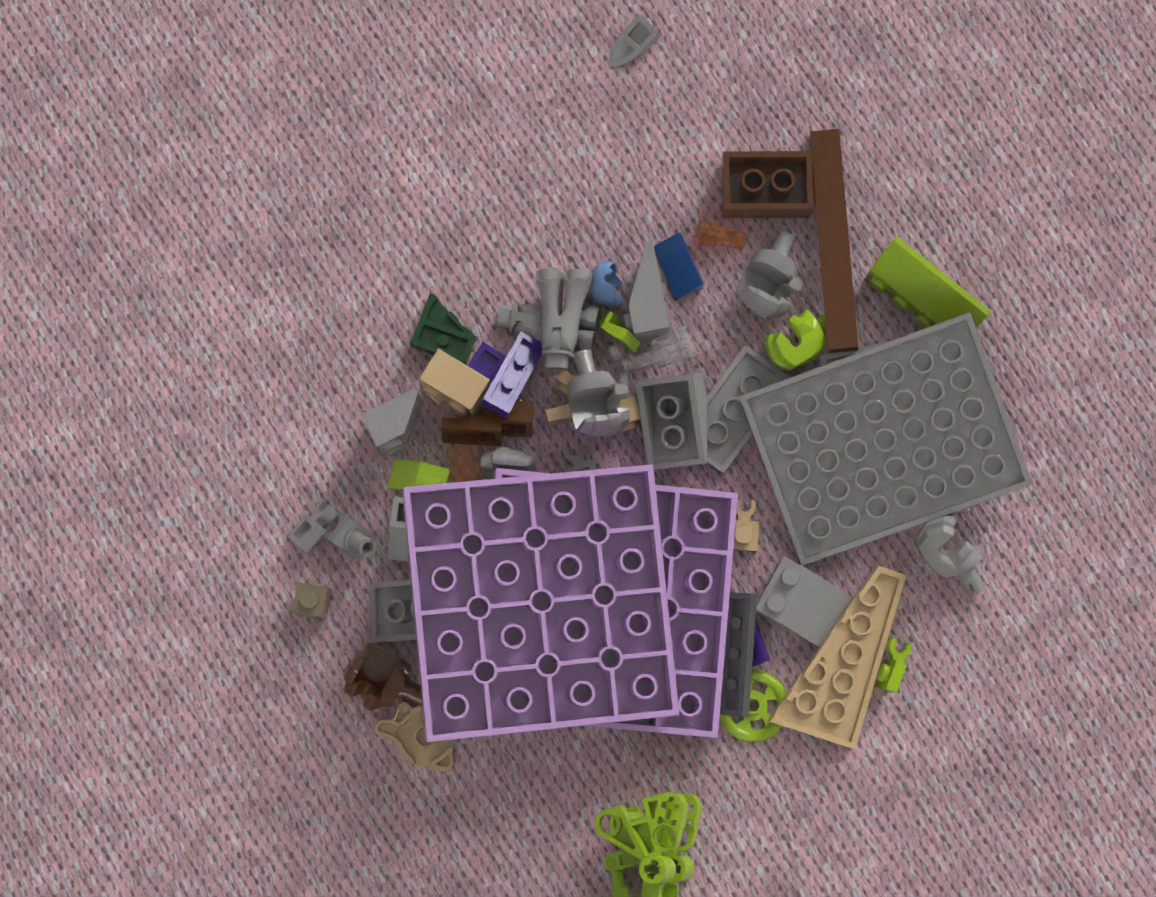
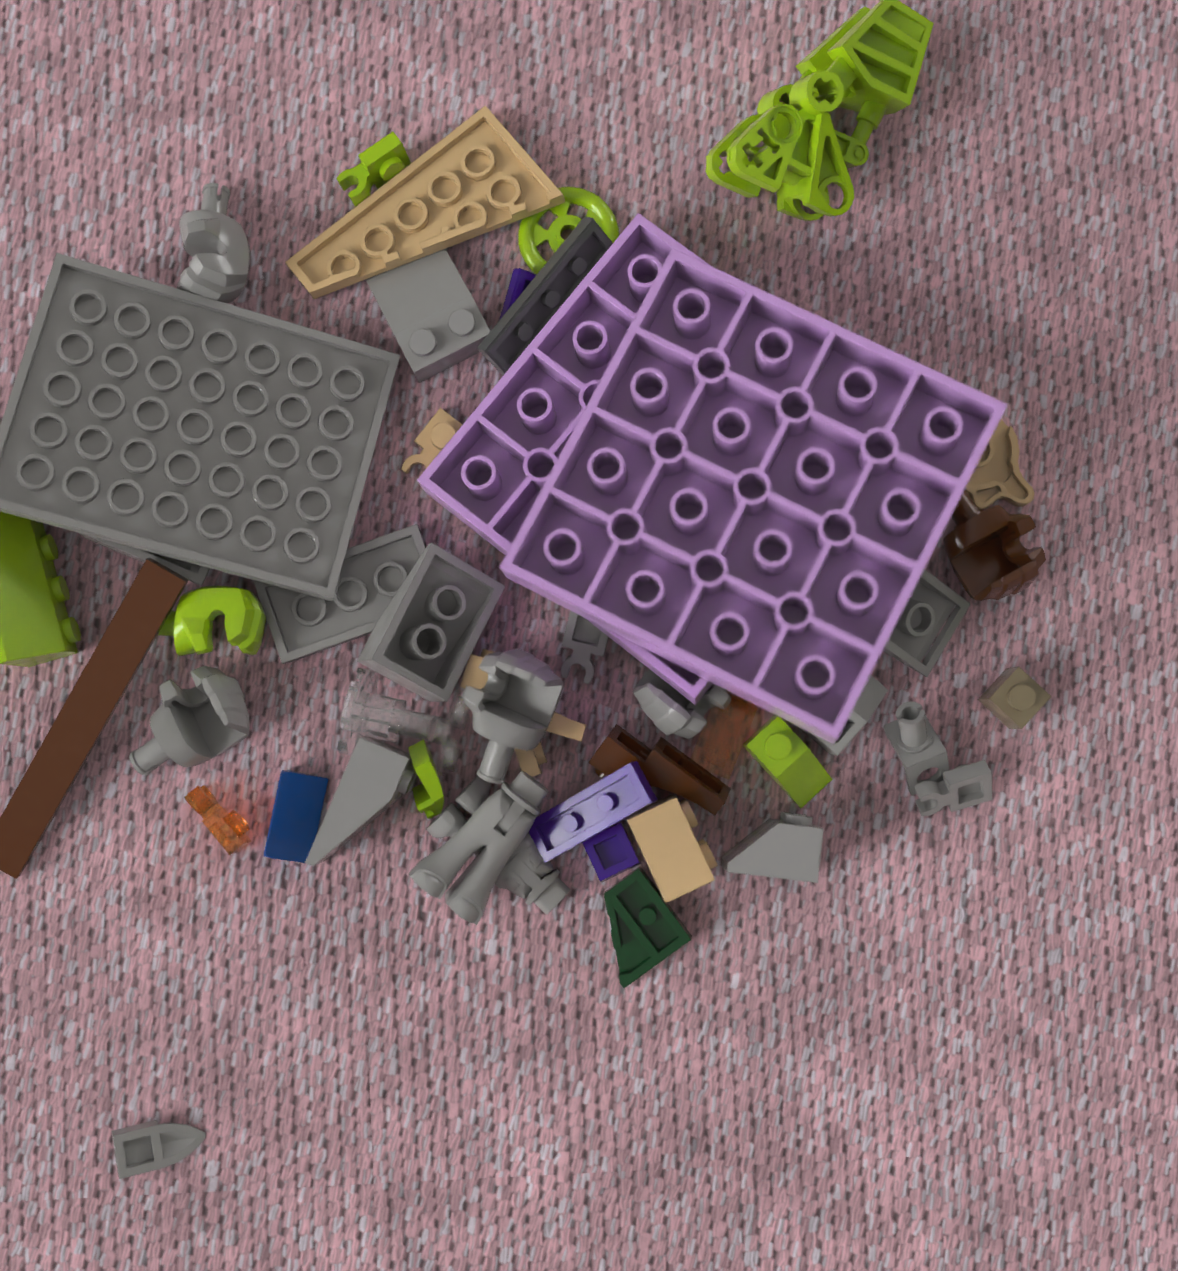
camera: 145 degrees left, 5 degrees up
(600, 289) = (412, 848): medium blue hair -> none
(767, 184) = (115, 844): reddish brown brick -> none

